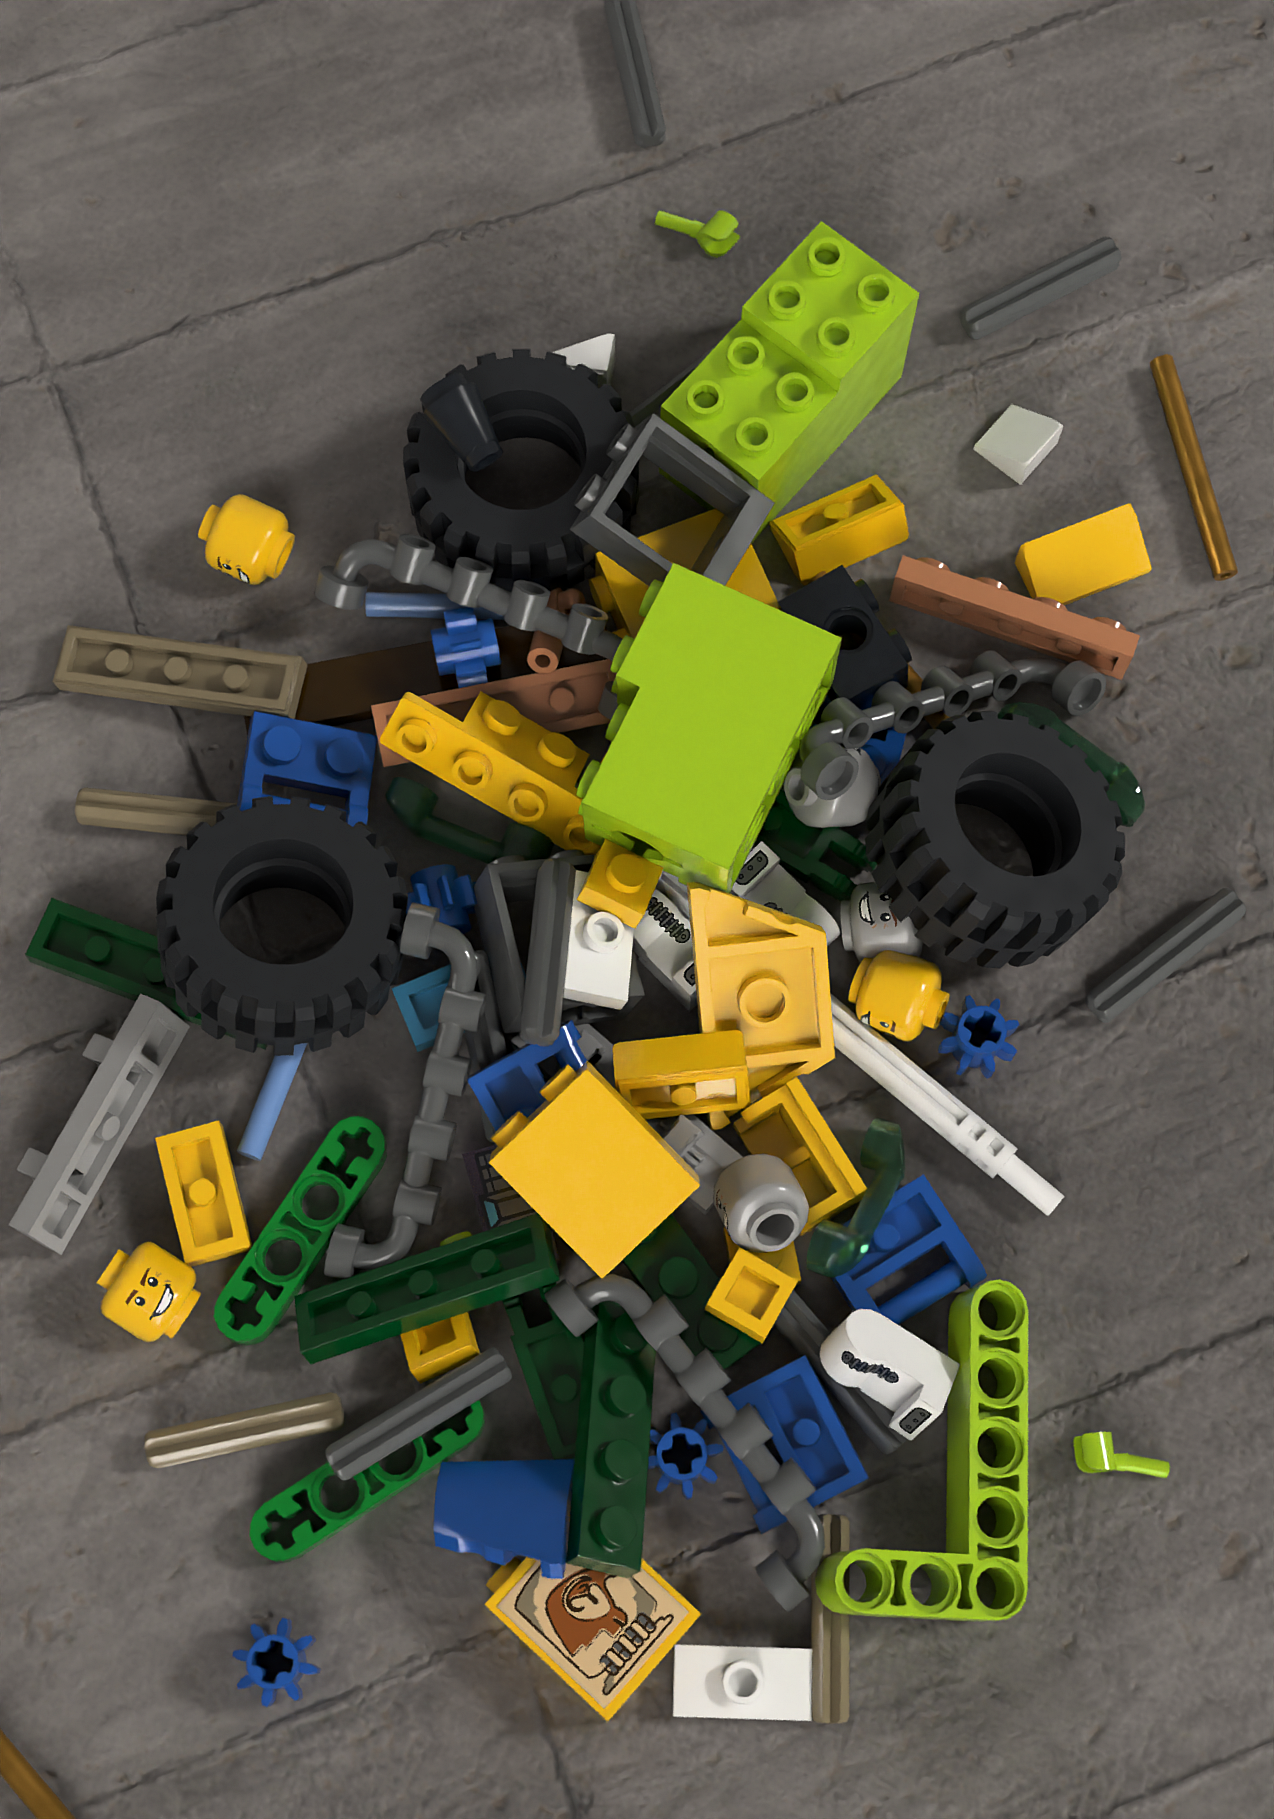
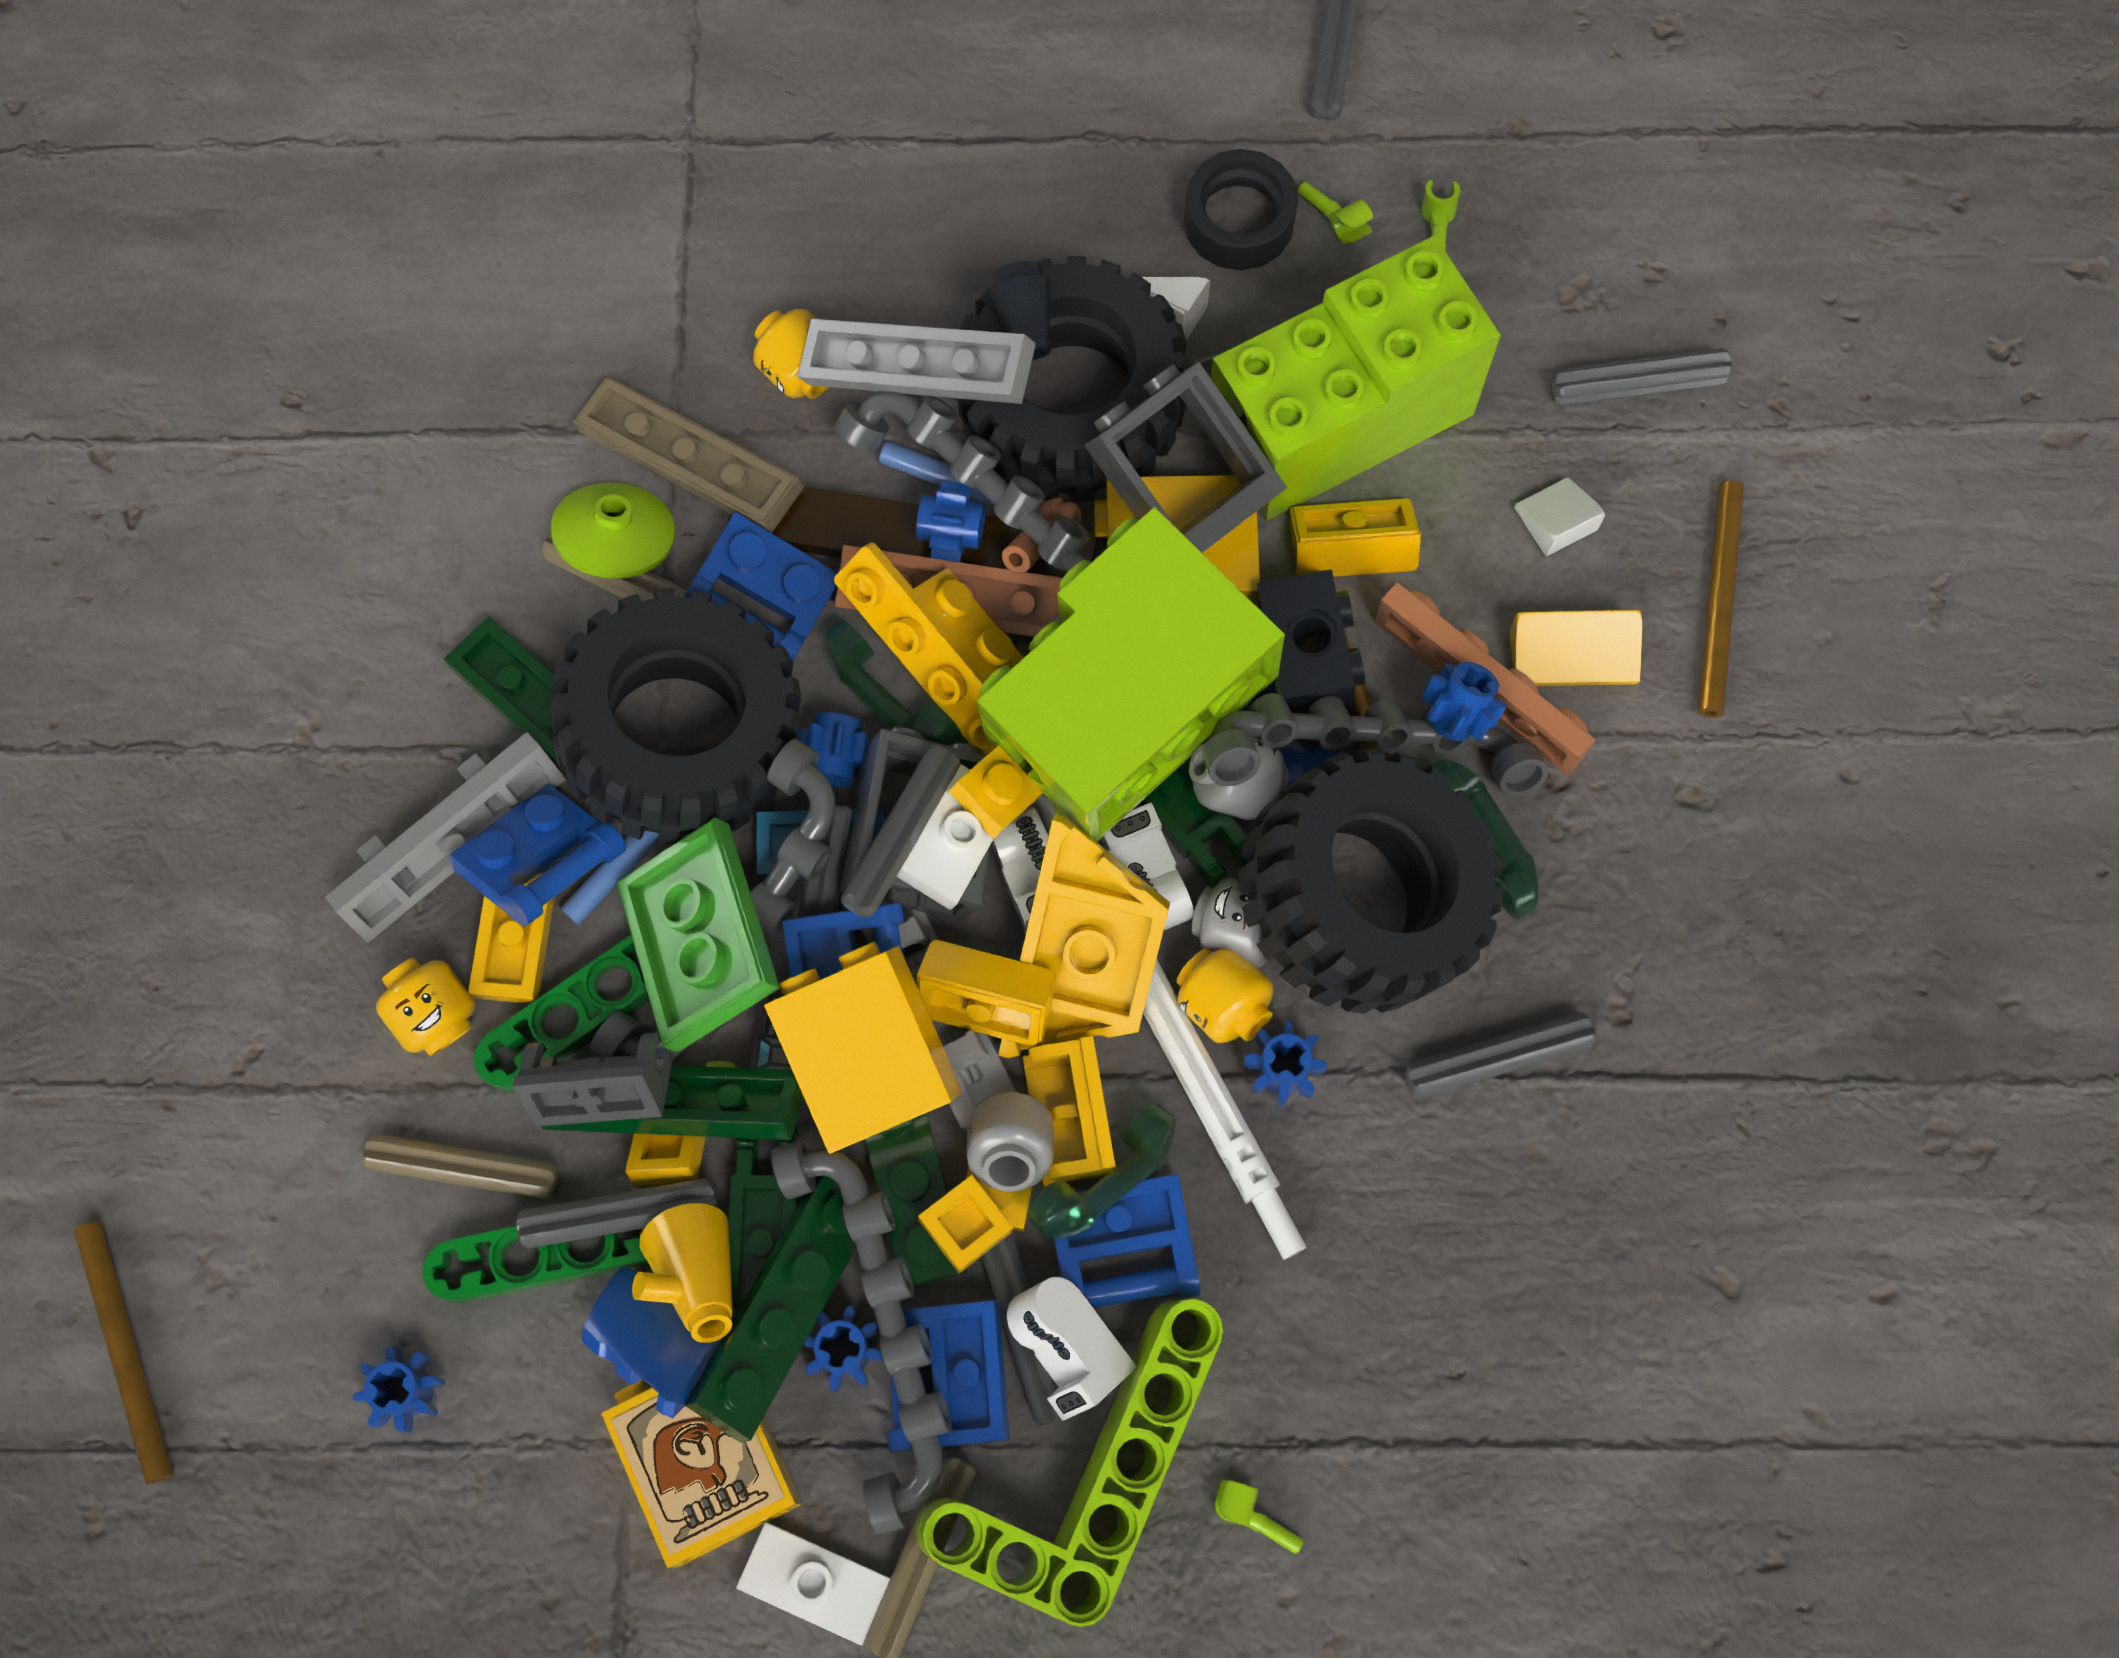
camera: 25 degrees right, 0 degrees up
(137, 772) = (612, 530): none -> lime dish
(182, 1099) = (527, 843): none -> blue plate
(350, 1303) = (594, 1087): none -> dark grey hinge
(377, 505) = (917, 360): none -> light grey plate
(390, 1123) = (697, 935): none -> bright green tile
(513, 1436) = (690, 1267): none -> yellow piece
(603, 218) = (1249, 170): none -> black tyre
(795, 199) = (1440, 211): none -> lime hand
(1009, 643) = (1463, 701): none -> blue gear

